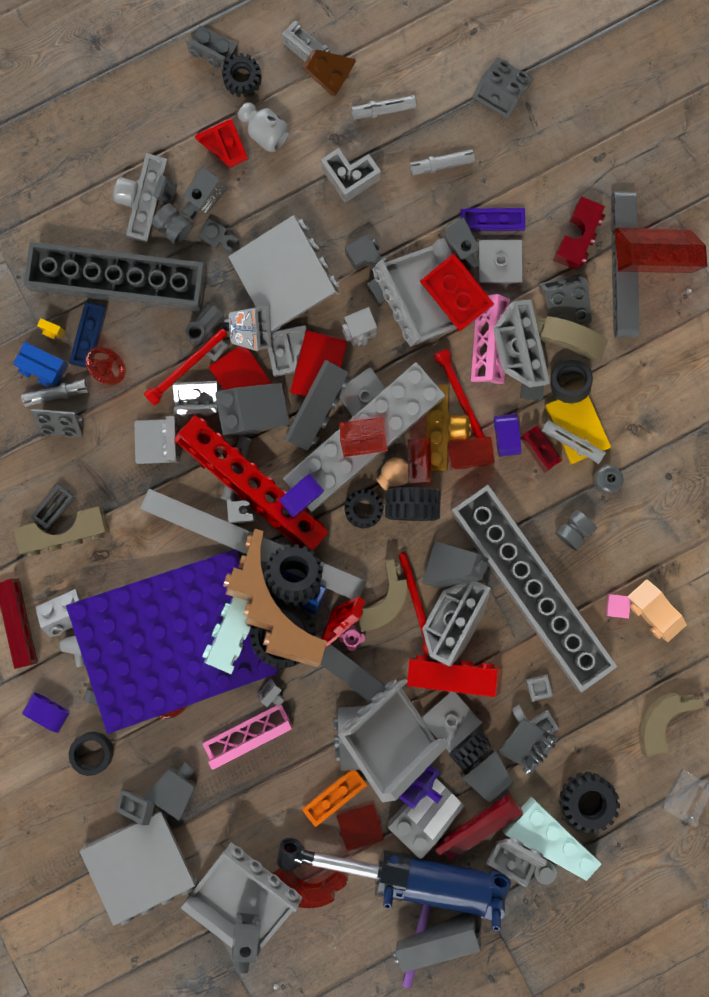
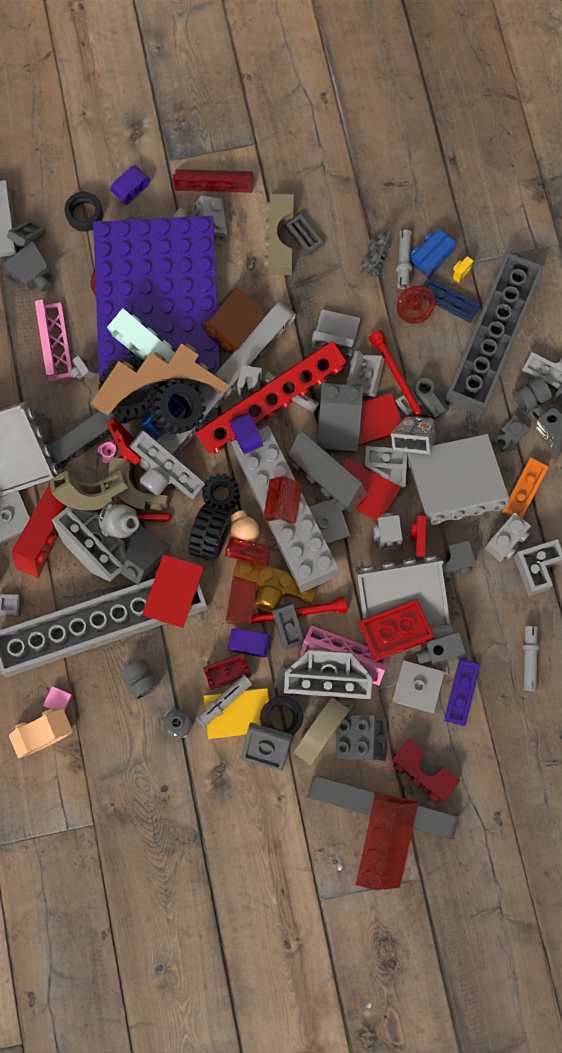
camera: 115 degrees right, 10 degrees down
(176, 549) = (233, 320): none -> reddish brown brick
(271, 206) = (525, 488): none -> orange plate
(328, 211) = (507, 537): none -> light grey brick
(353, 296) = (418, 534): none -> red wing
(359, 572) = (164, 468): none -> light grey plate
(411, 639) = (84, 495): none -> dark tan arch
(428, 599) = (118, 520): none -> light grey piece
(481, 401) = (287, 626): none -> dark grey plate
(485, 520) = (173, 591): none -> red tile
(604, 387) = (266, 746): none -> dark grey tile

